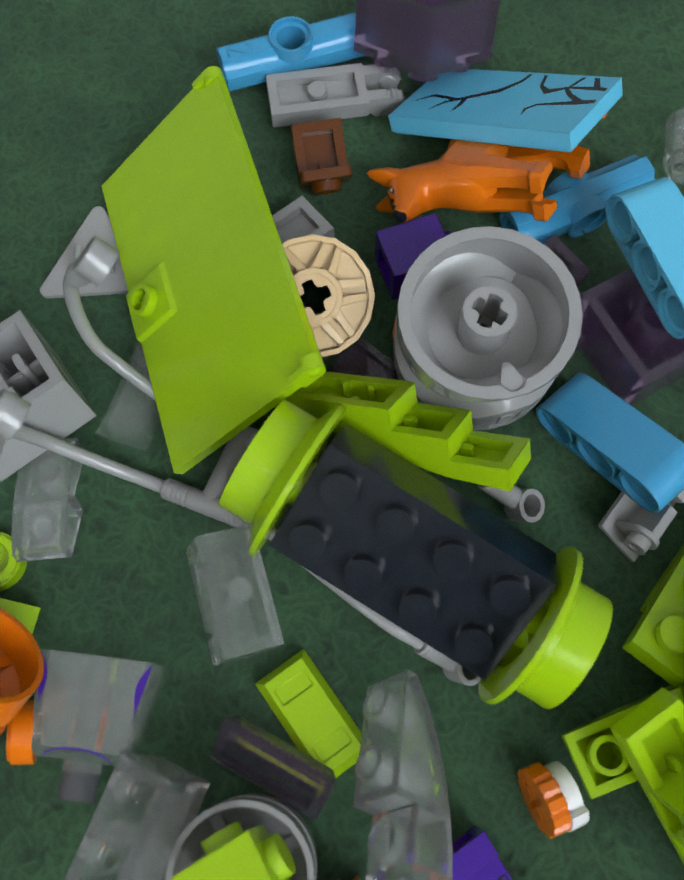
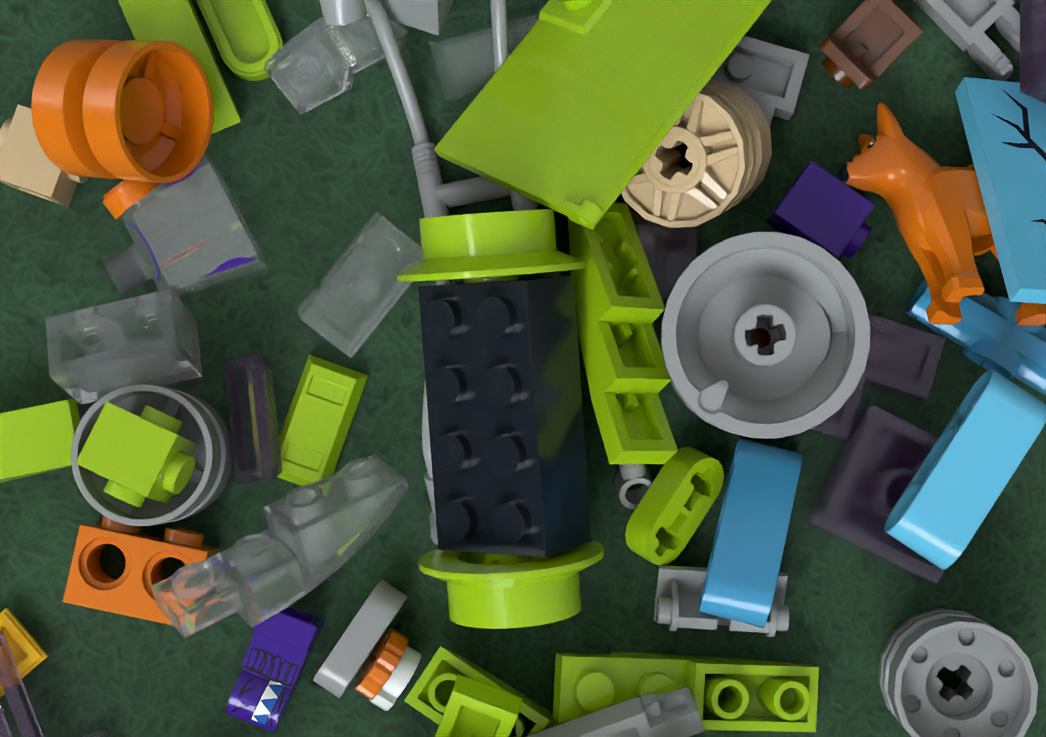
camera: 55 degrees right, 15 degrees up
(512, 804) = (360, 638): none -> light grey beam
(560, 487) = (674, 505): none -> lime beam

